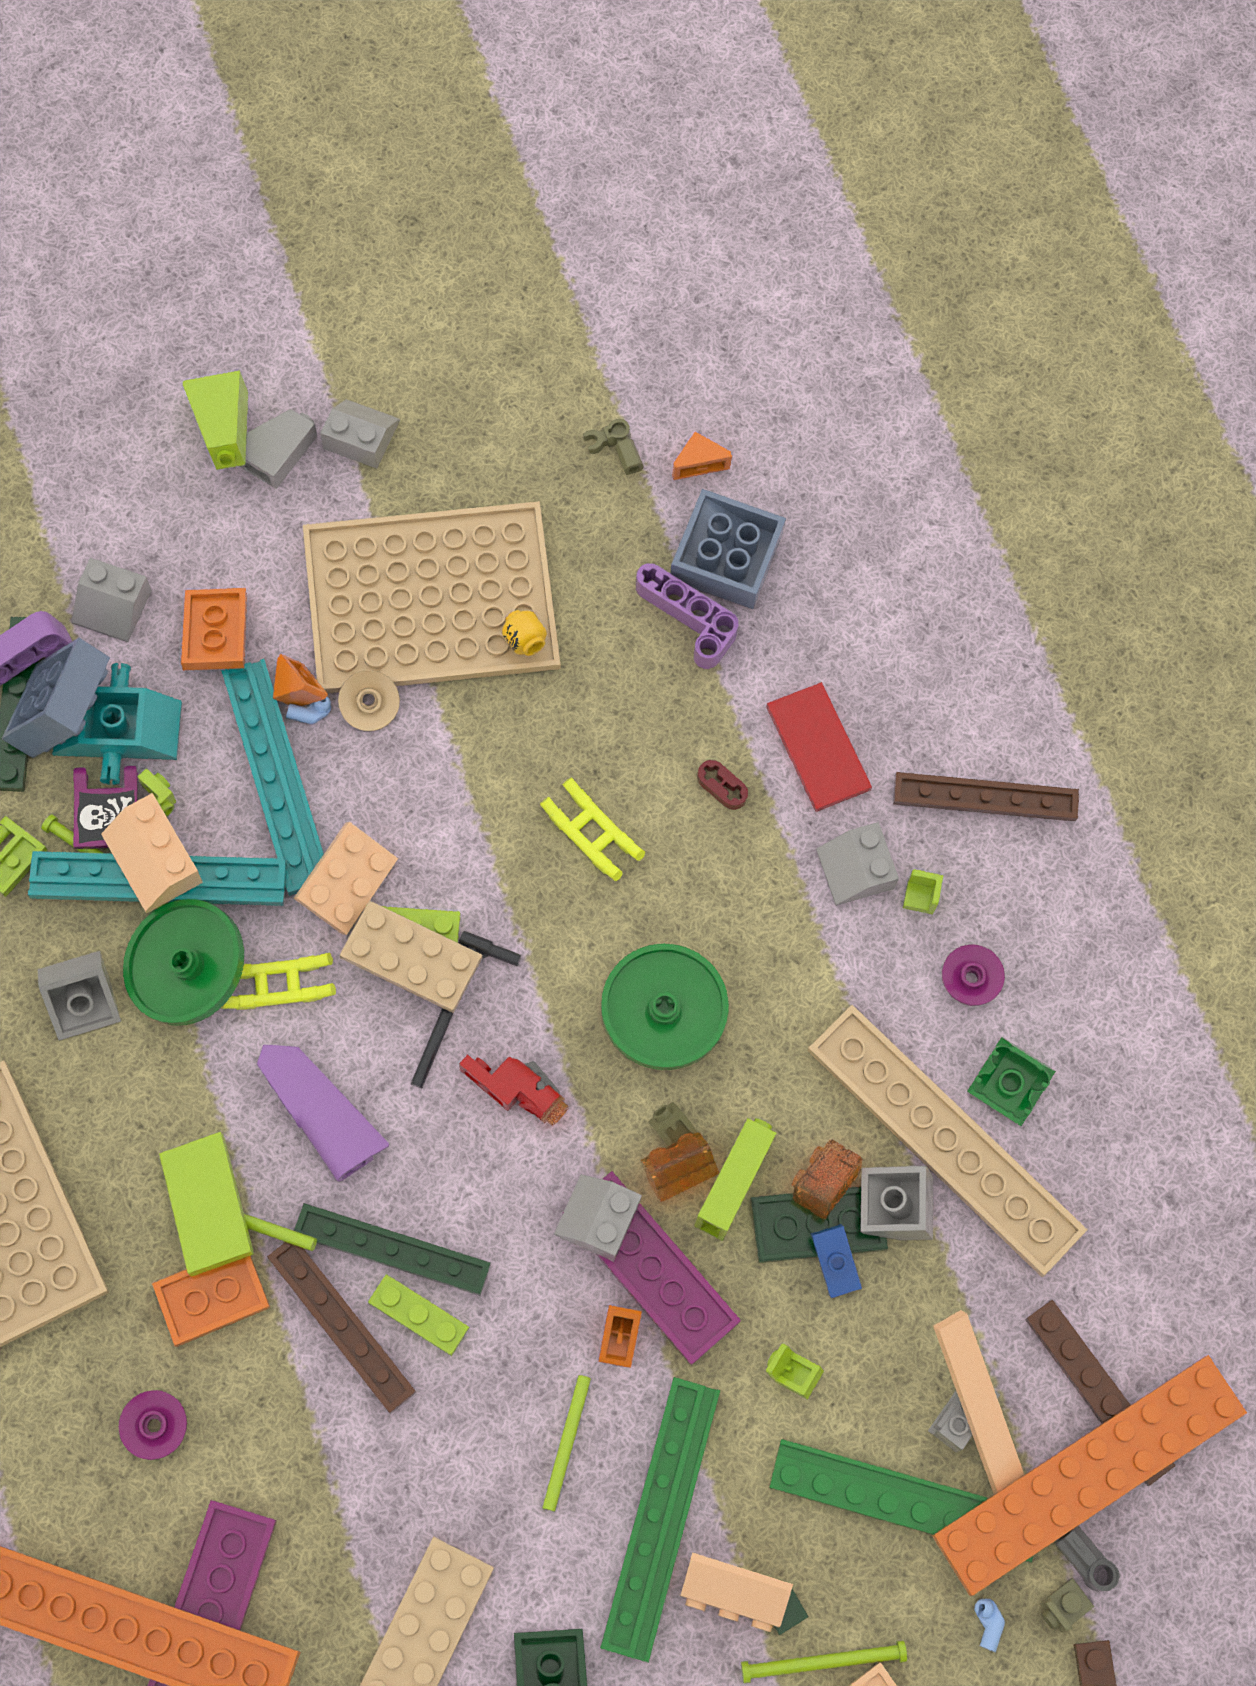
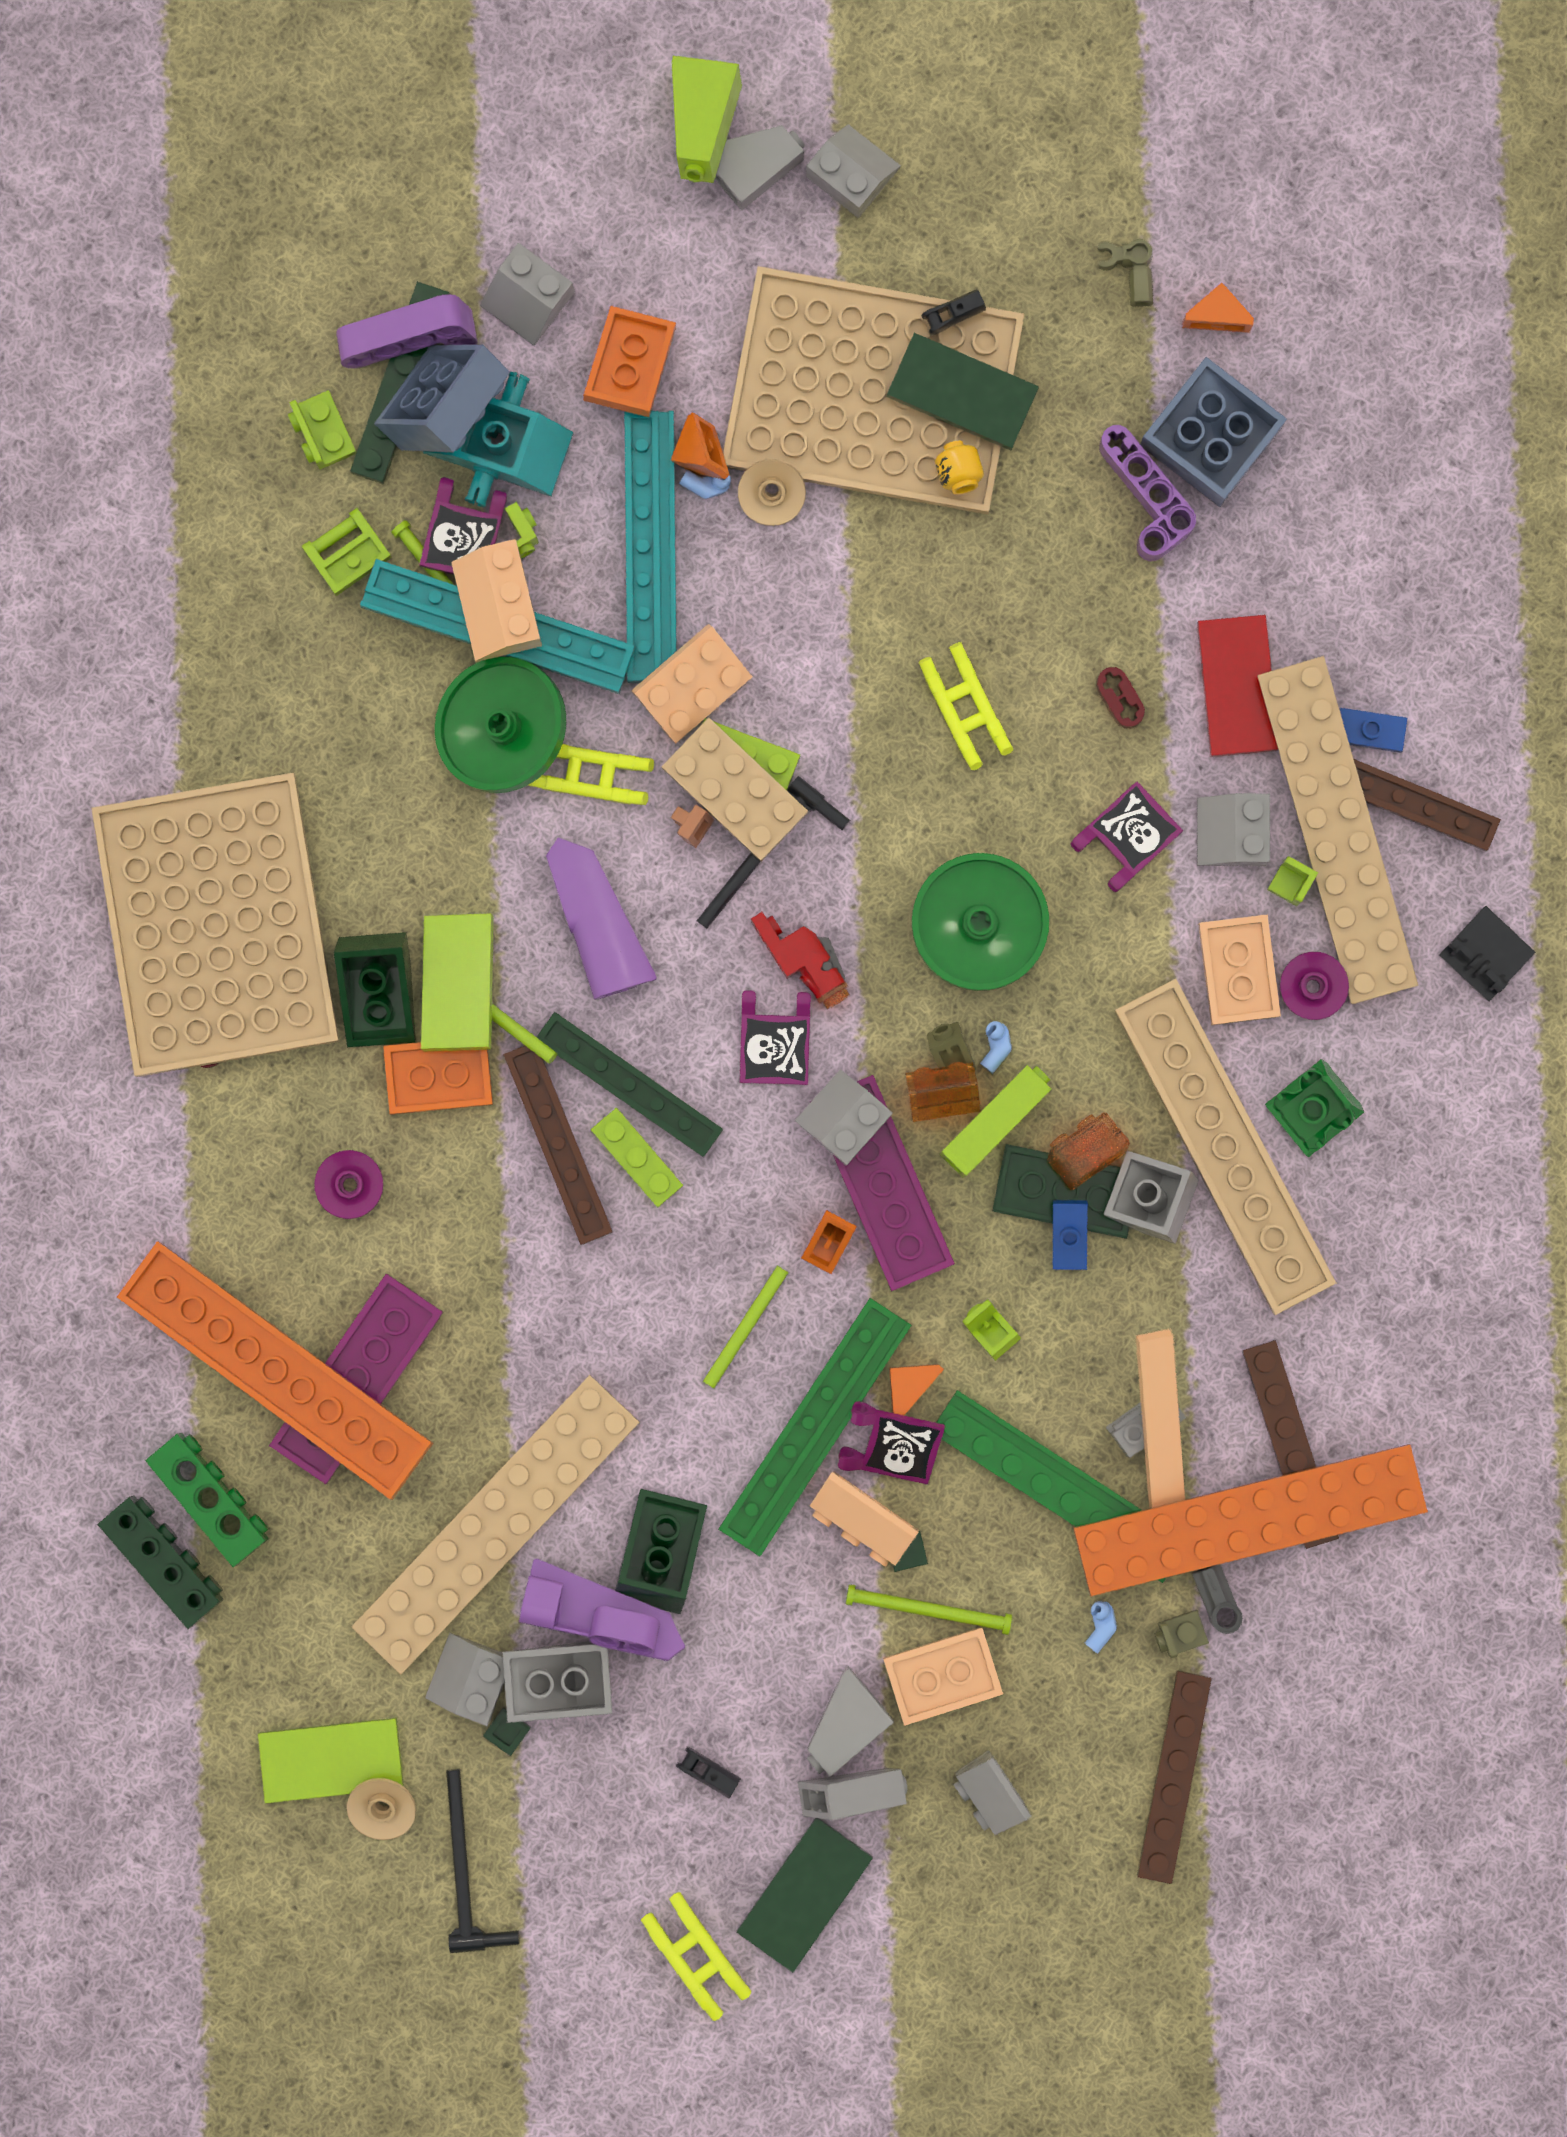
camera: 25 degrees right, 15 degrees up
(78, 995) = (385, 725): light grey slope -> none
(131, 1234) = (375, 989): none -> dark green slope
(382, 999) = (693, 824): none -> nougat tile
(482, 511) = (958, 309): none -> black bar
(507, 574) = (962, 391): none -> dark green tile
(515, 1173) = (774, 1045): none -> flag
(716, 1111) = (999, 1045): none -> light blue arm
(735, 1449) = (909, 1384): none -> orange slope
(744, 1510) = (896, 1445): none -> flag
(770, 892) = (1132, 831): none -> flag
(903, 981) = (1239, 969): none -> light nougat plate
(942, 750) = (1374, 729): none -> blue plate
(946, 839) = (1337, 829): none -> tan plate
(1109, 905) = (1487, 953): none -> black hinge

